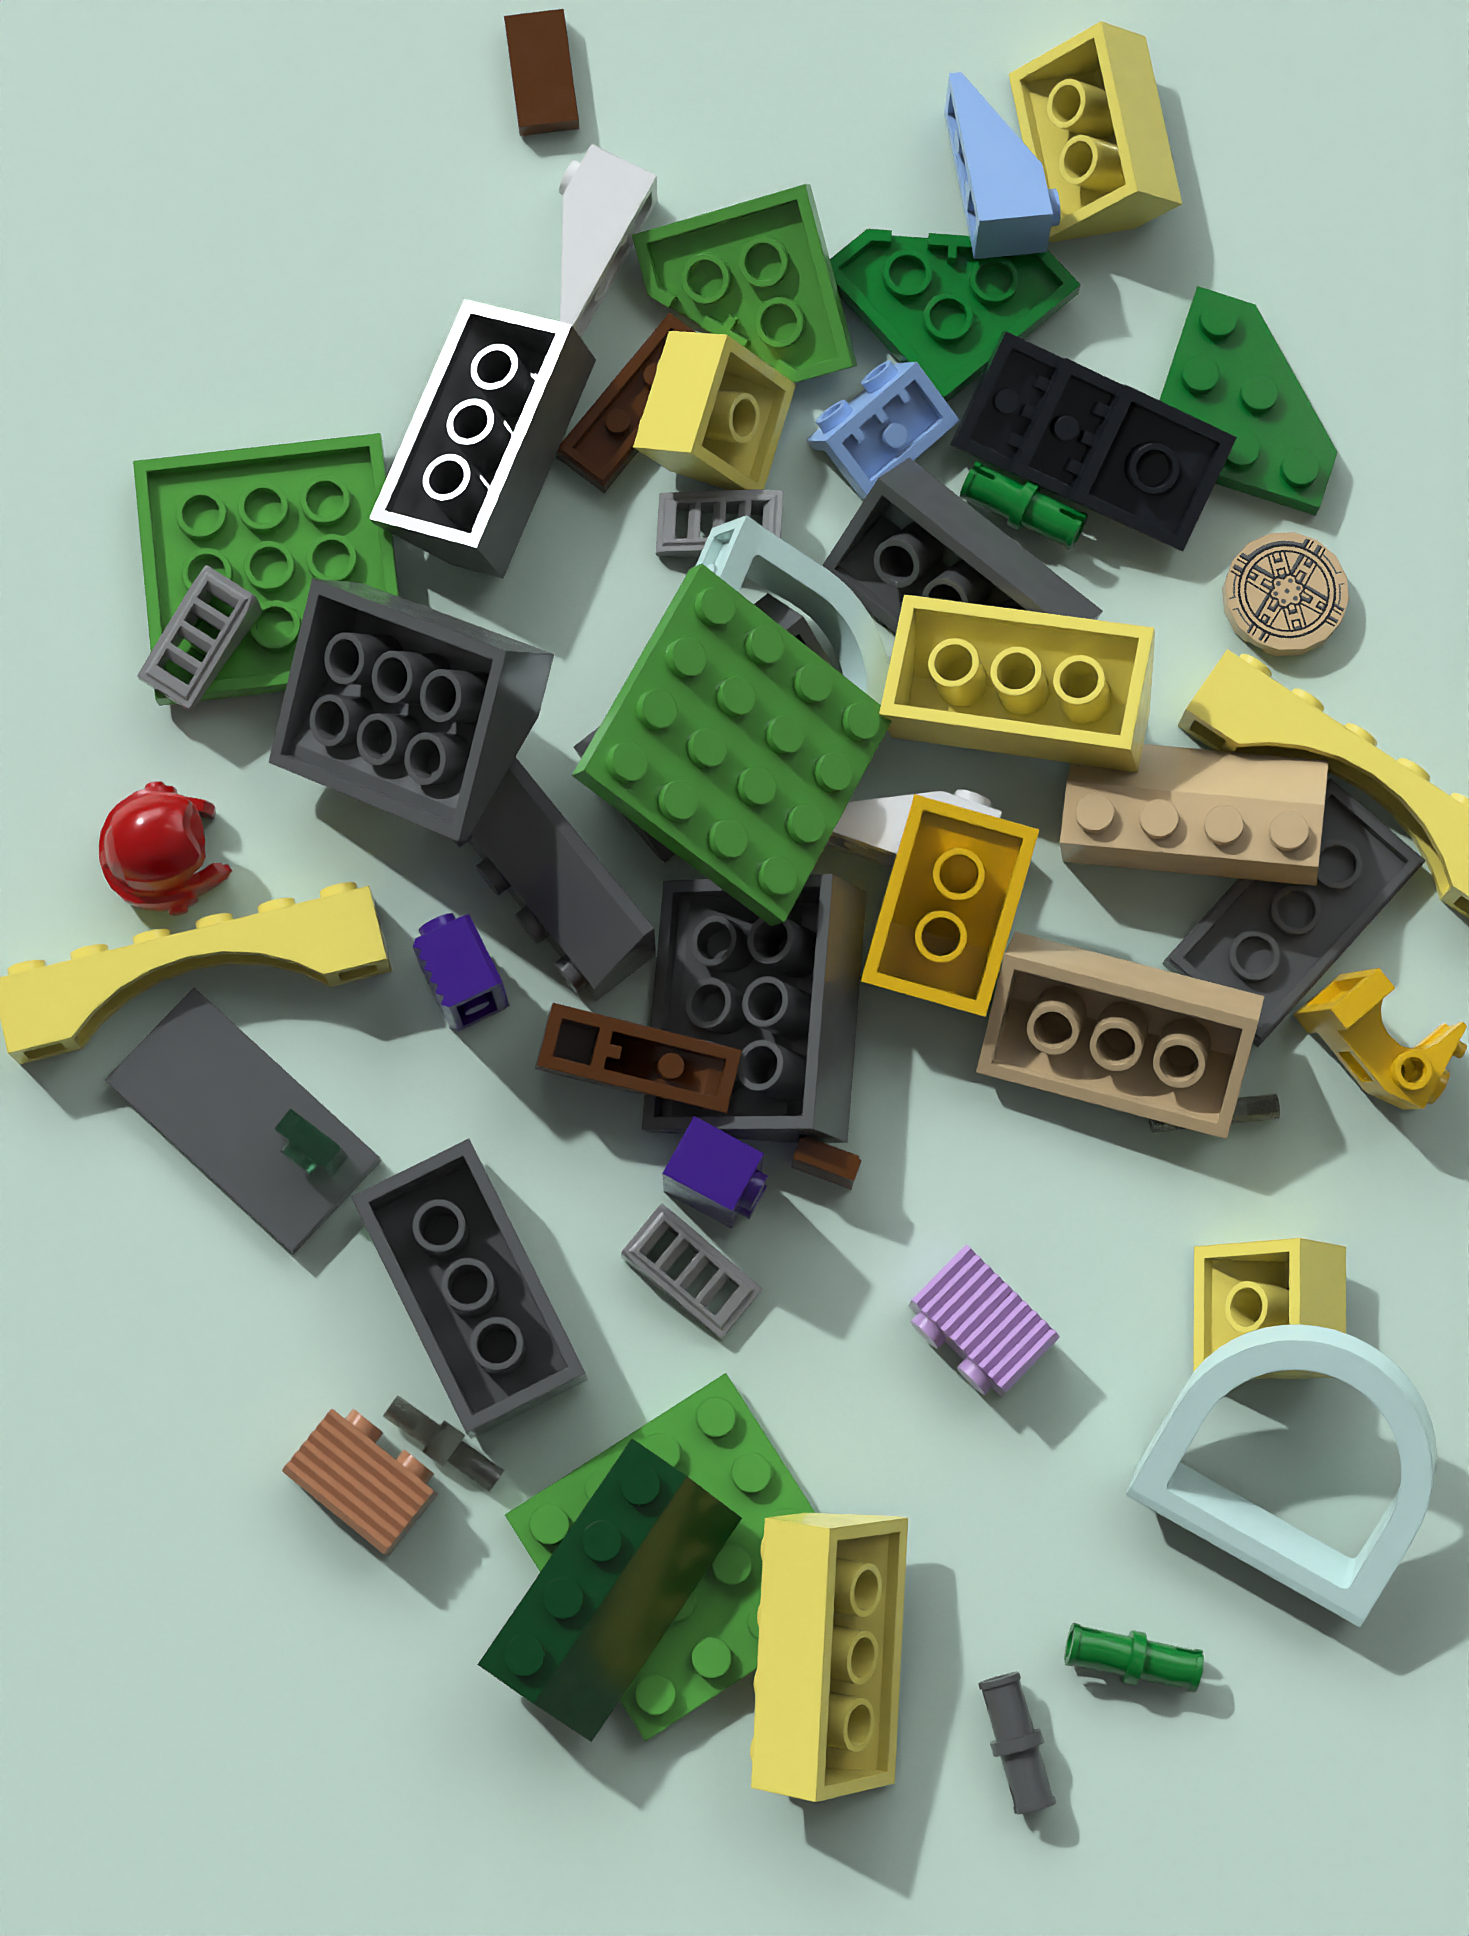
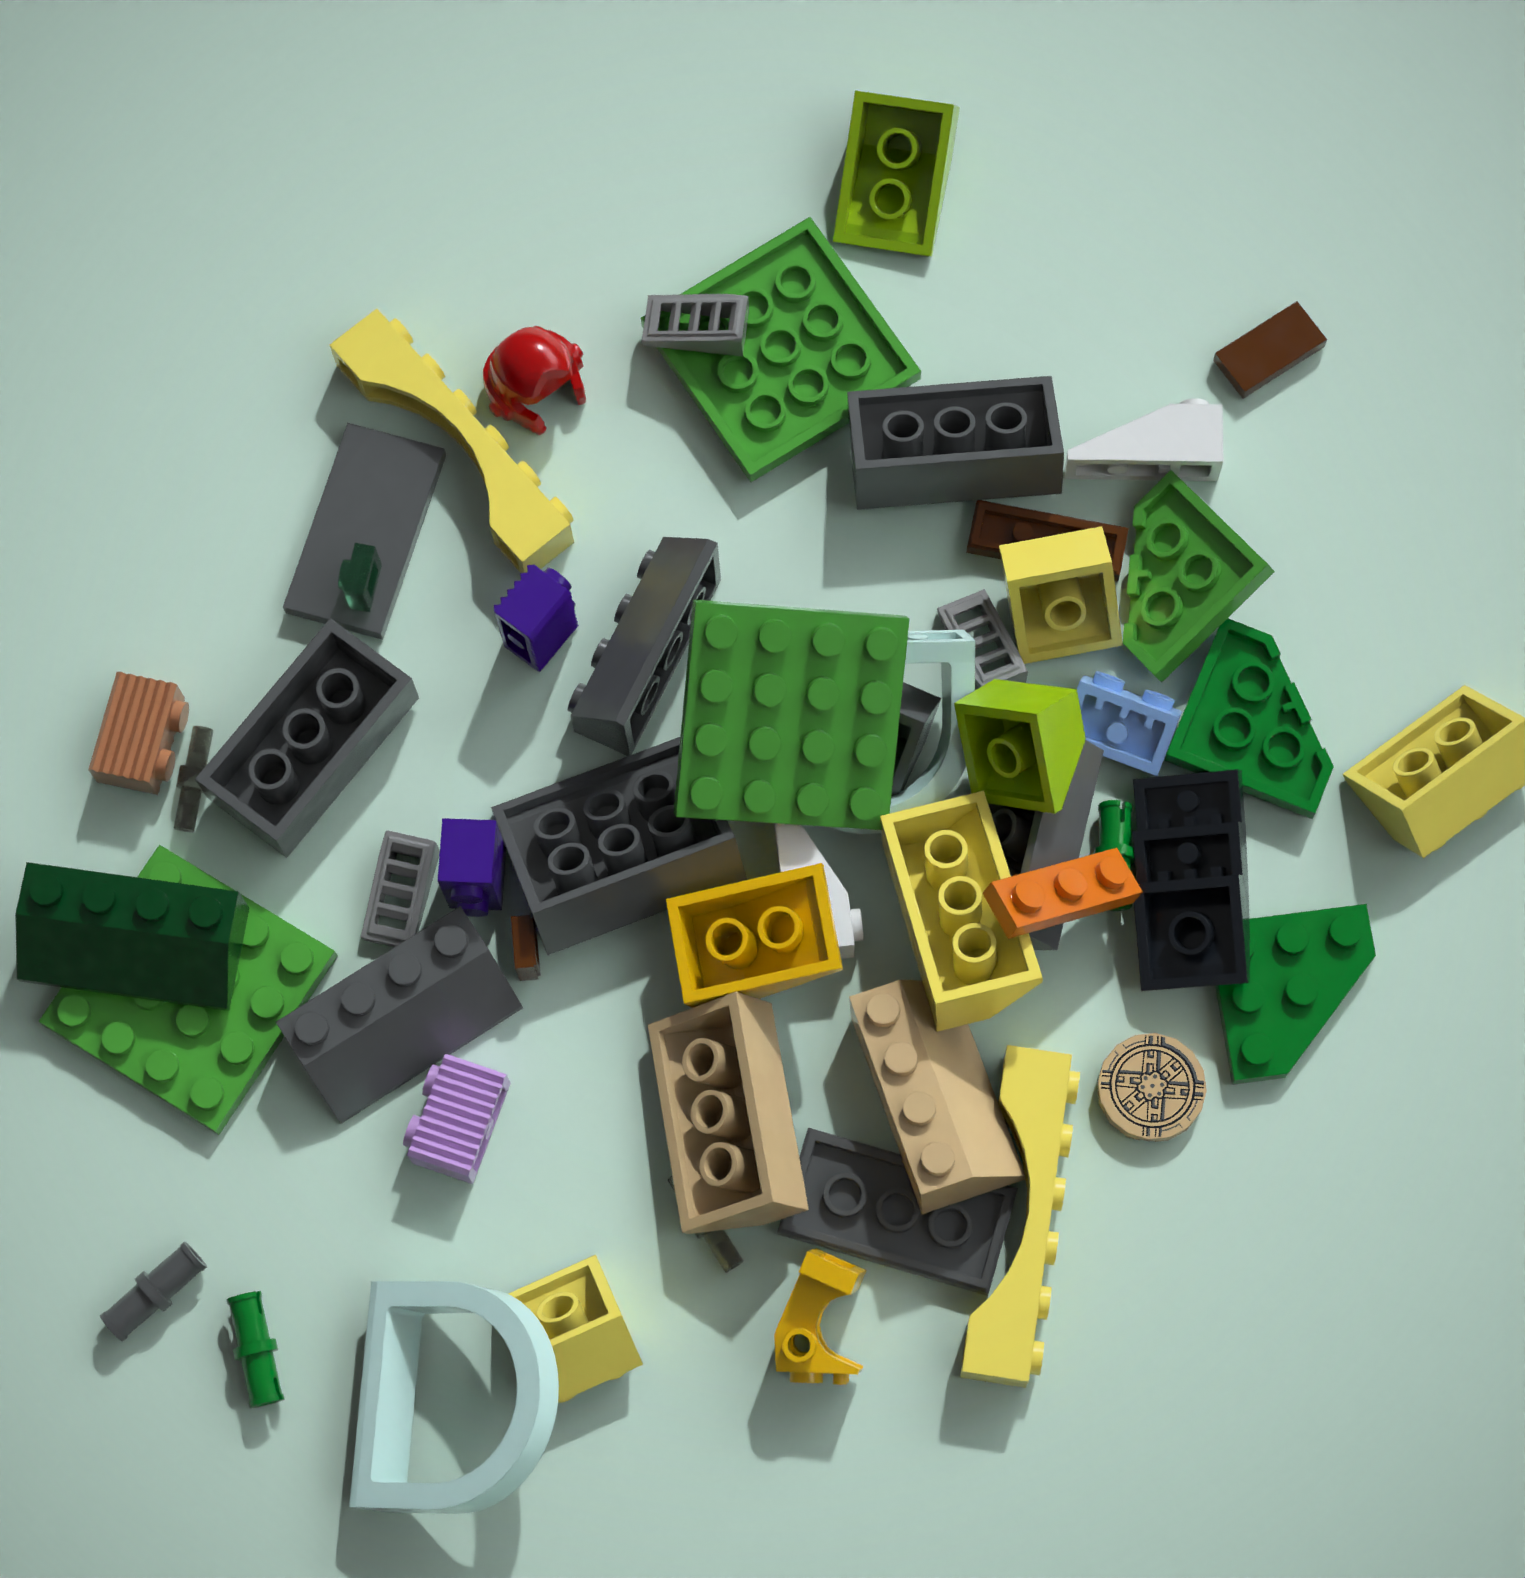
camera: 70 degrees right, 5 degrees down
(129, 345) = (895, 172): none -> lime slope
(406, 705) = (708, 475): dark grey slope -> none
(637, 1058) = (532, 768): reddish brown slope -> none
(828, 1654) = (153, 1117): light yellow slope -> none
(836, 1332) = (399, 1014): none -> dark grey slope
(878, 527) = (1021, 742): none -> lime slope
(998, 178) = (1358, 712): light blue slope -> none
(1061, 568) = (1062, 892): none -> orange plate

